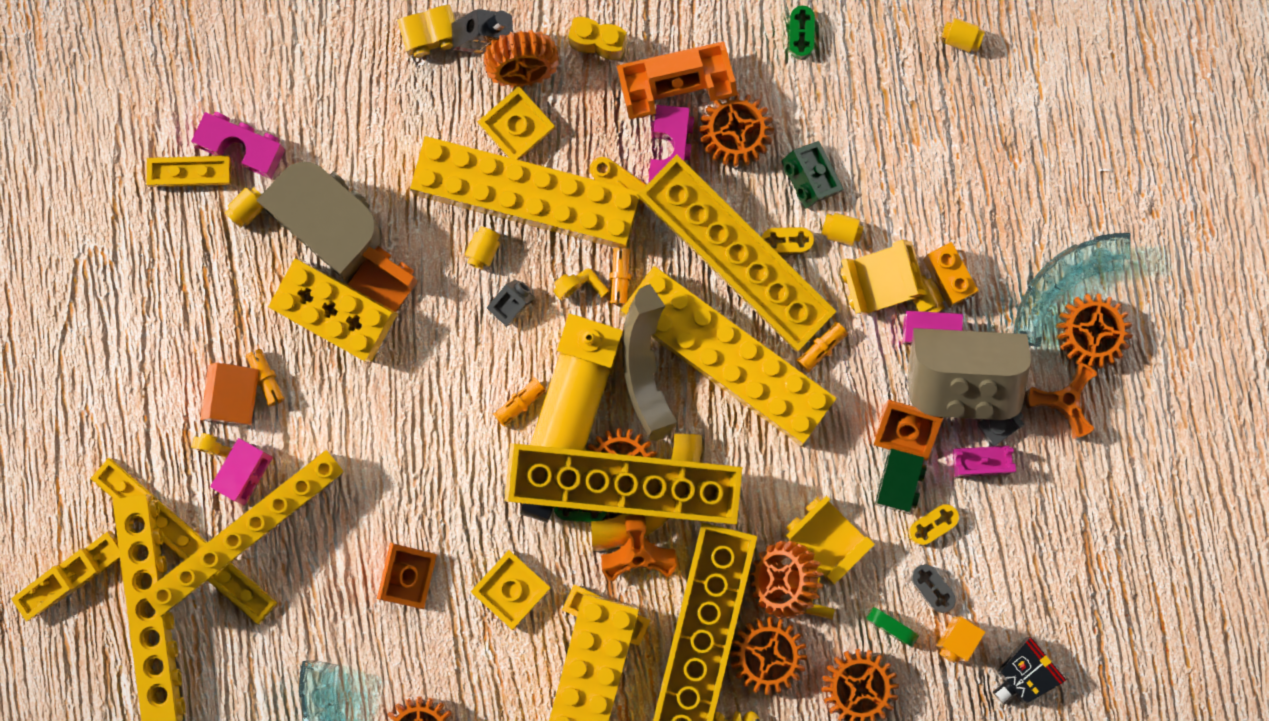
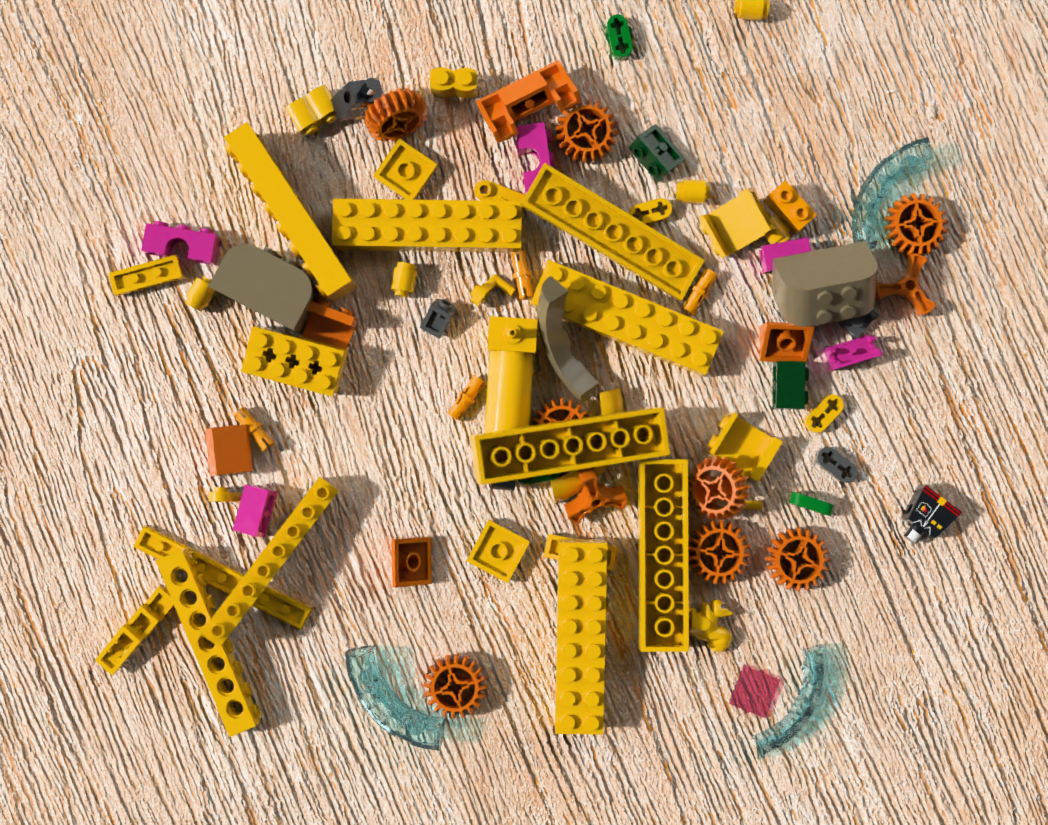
camera: 20 degrees left, 5 degrees up
(373, 143) = (287, 209): none -> yellow brick
(959, 640) = (869, 501): light orange brick -> none

